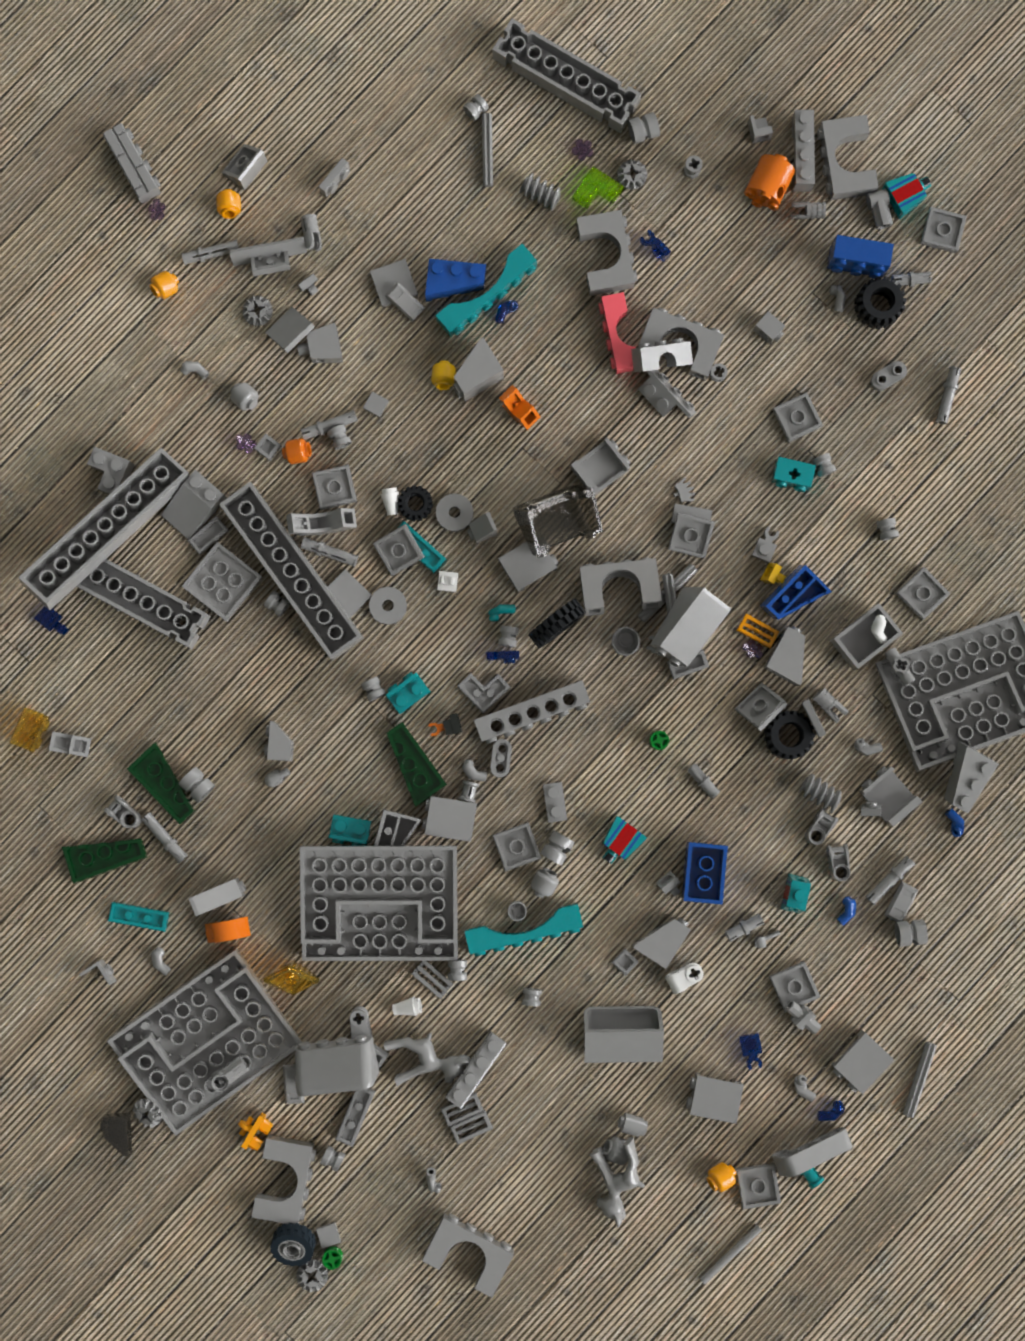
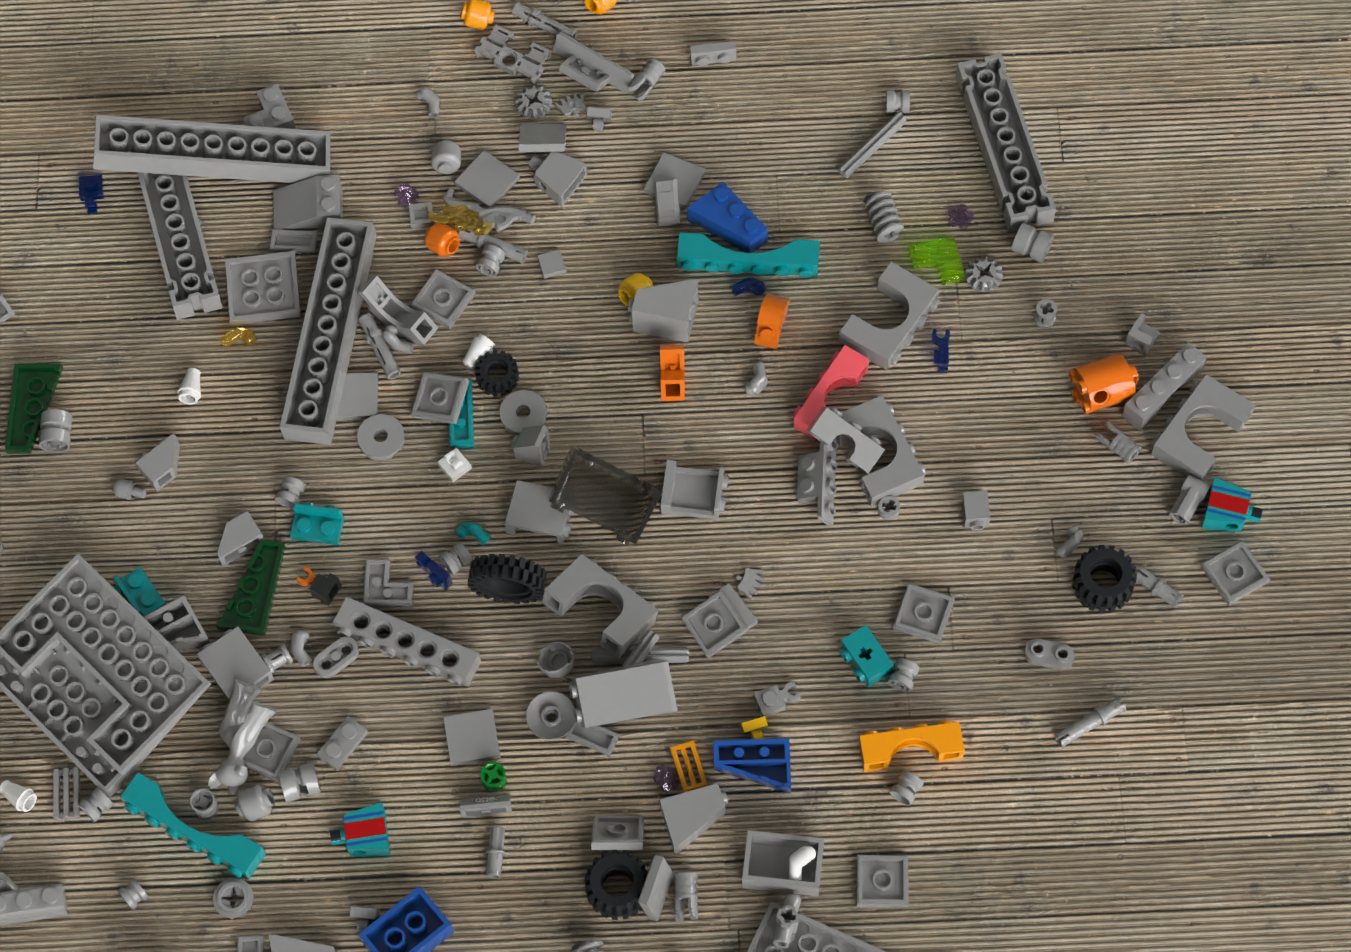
camera: 45 degrees right, 20 degrees down
(229, 291) = (527, 67): none -> light grey piece
(238, 624) = (241, 334): none -> clear yellow arm
(245, 682) = (190, 388): none -> white cone
(277, 603) = (288, 345): light grey wheel -> none
(281, 291) = (571, 105): none -> light grey piece
(282, 387) = (487, 179): none -> light grey tile
(302, 419) = (472, 216): none -> piece
(336, 541) = (394, 342): none -> light grey arm
(372, 743) = (238, 538): none -> light grey slope
(499, 857) = (240, 732): none -> light grey animal
(542, 319) = (770, 320): none -> orange brick
(571, 367) = (760, 380): none -> light grey arm
(587, 954) = (225, 890): none -> light grey gear
(622, 729) = (471, 737): none -> light grey tile
(662, 668) = (546, 705): none -> light grey dish
(669, 759) = (485, 806): none -> light grey slope
(853, 521) = (941, 740): none -> light orange arch
(859, 256) = (1123, 519): blue brick -> none

